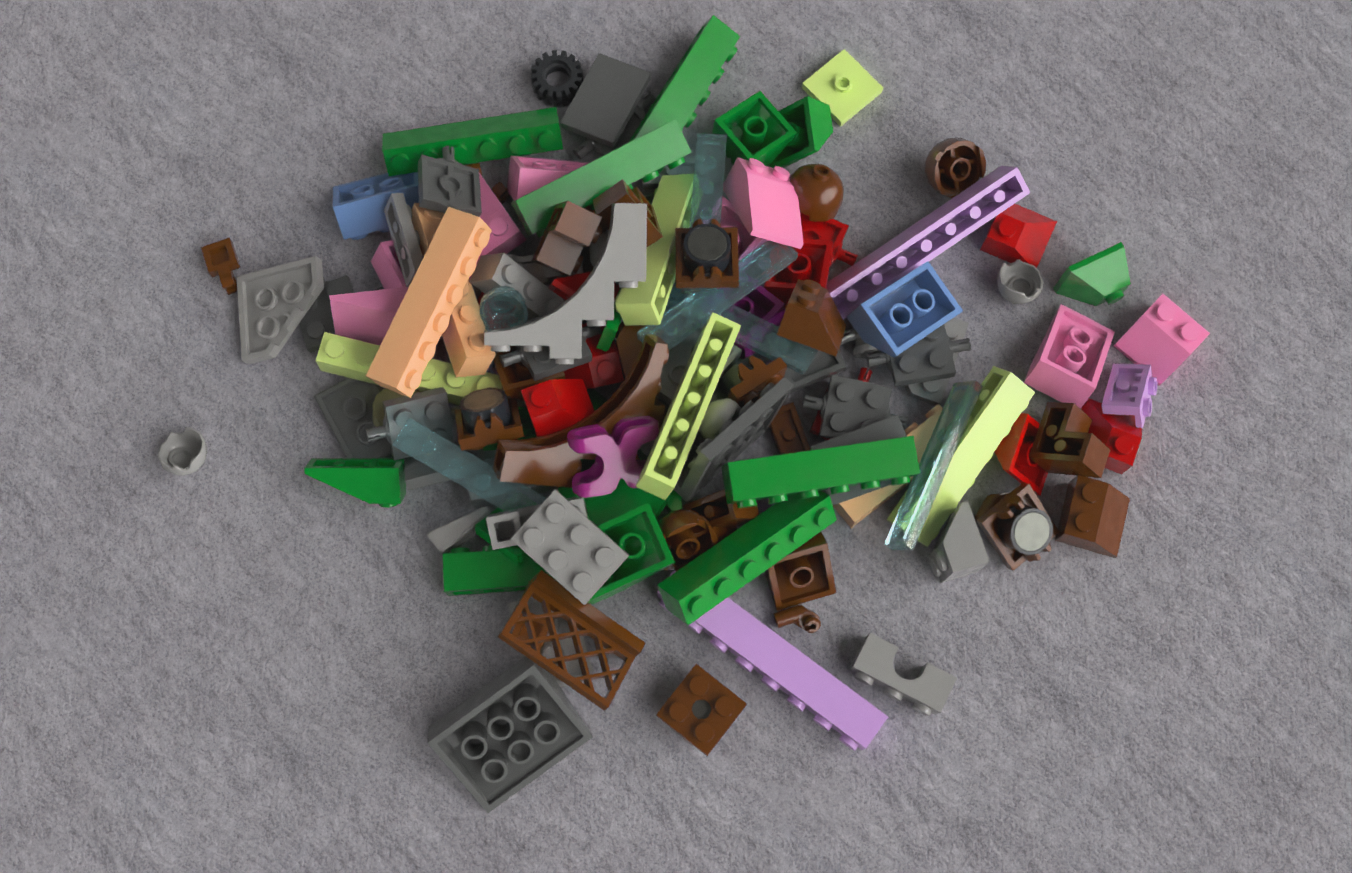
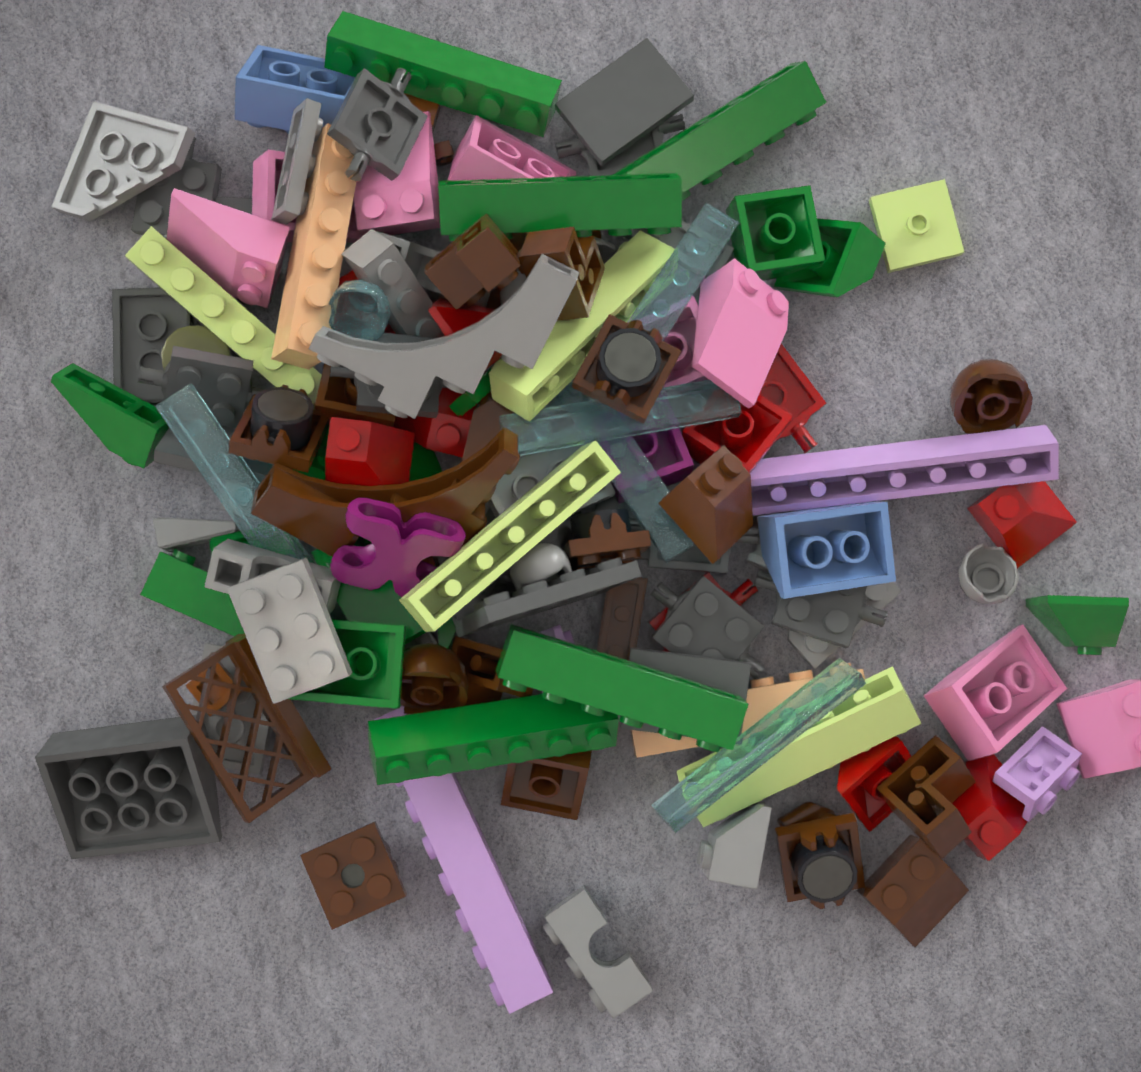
camera: 25 degrees right, 10 degrees up
(221, 261) = (85, 72): reddish brown plate -> none
(429, 302) = (277, 260): light nougat brick -> none
(552, 64) = (583, 21): black tyre -> none
(799, 616) = (522, 826): reddish brown arm -> none
(818, 191) = (810, 344): reddish brown cylinder -> none

